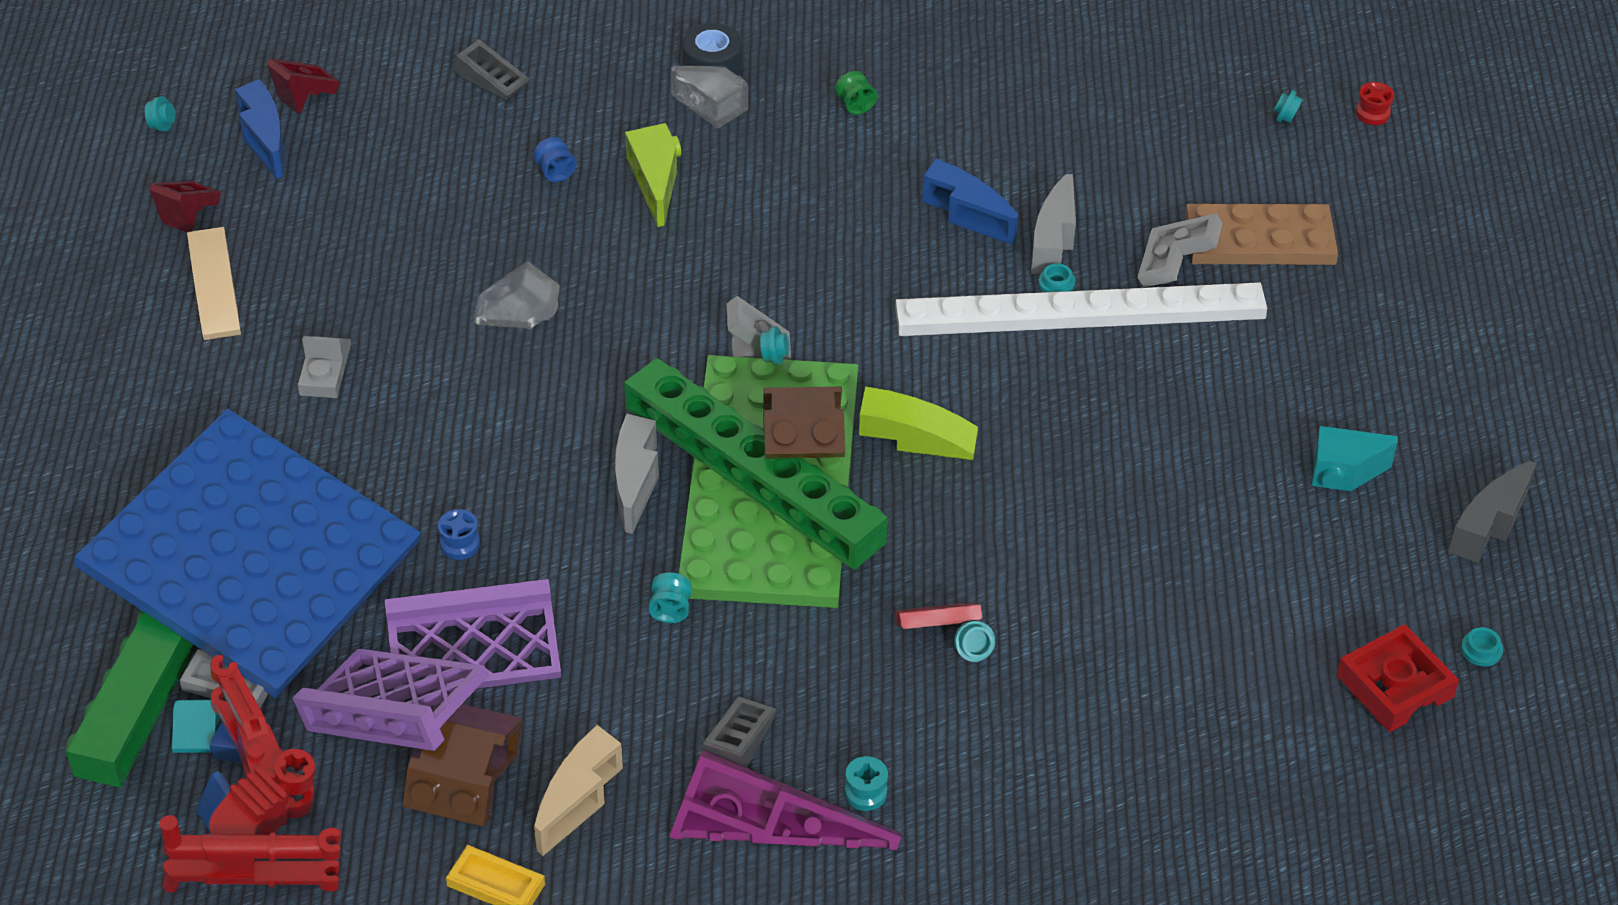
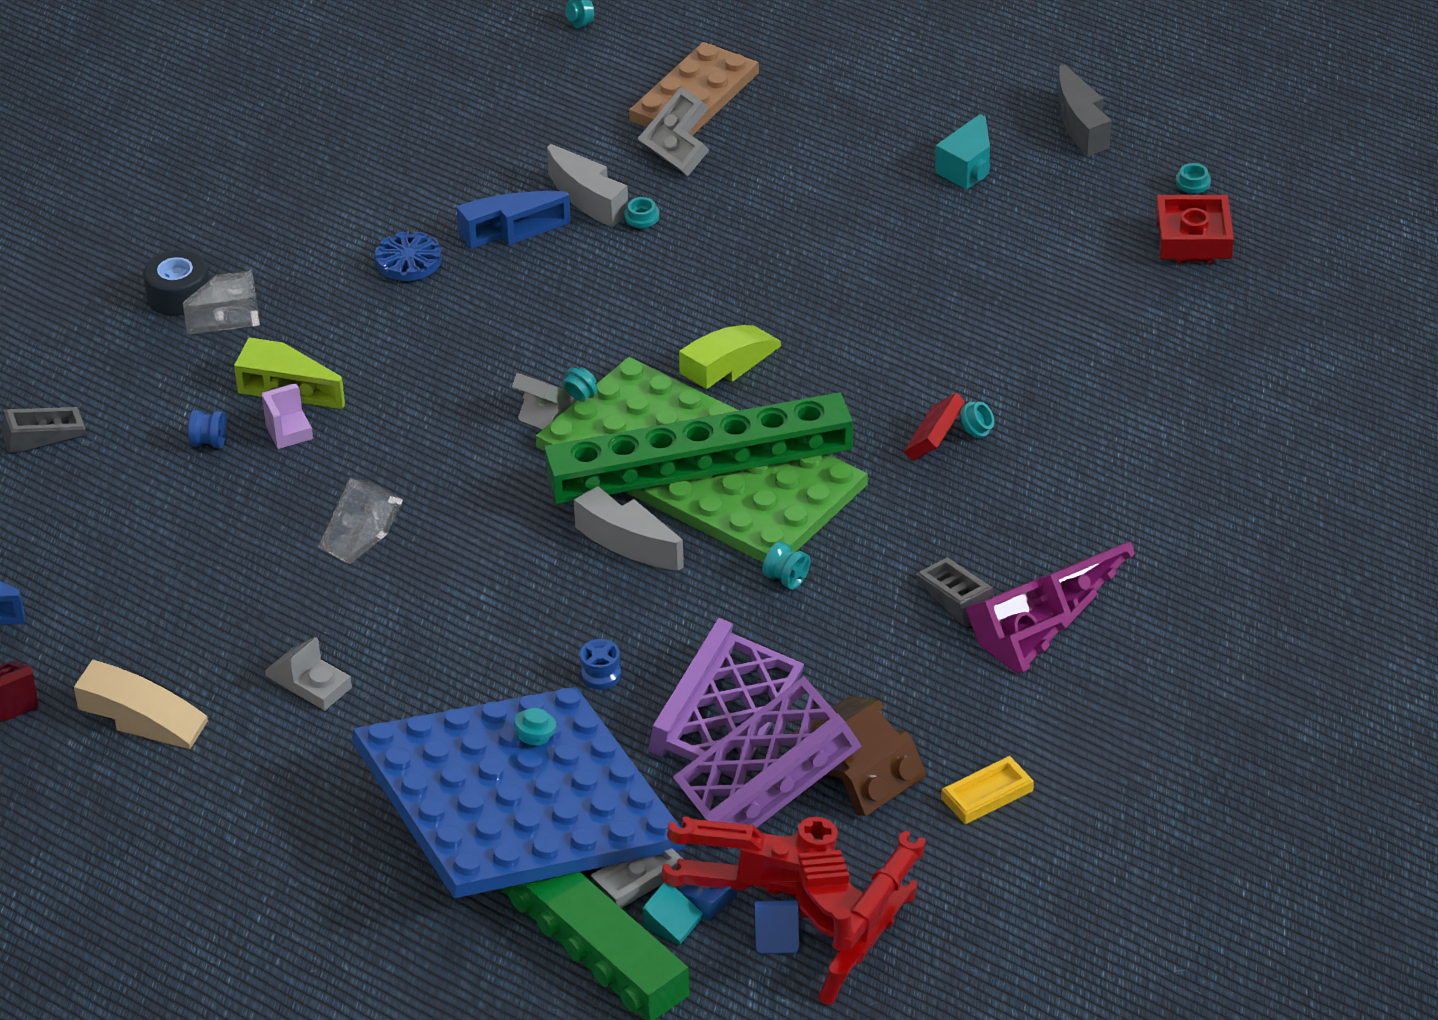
camera: 55 degrees left, 5 degrees down
(317, 520) = (534, 726): none -> teal plate
(577, 788) = (939, 699): tan slope -> none
(603, 195) = (285, 416): none -> lavender panel
(803, 422) = (709, 388): reddish brown piece -> none
(855, 92) = (316, 222): green wheel -> none
(858, 790) = (1065, 537): teal wheel -> none
(870, 167) = (408, 257): none -> blue wheel
(1080, 309) = (678, 220): white plate -> none

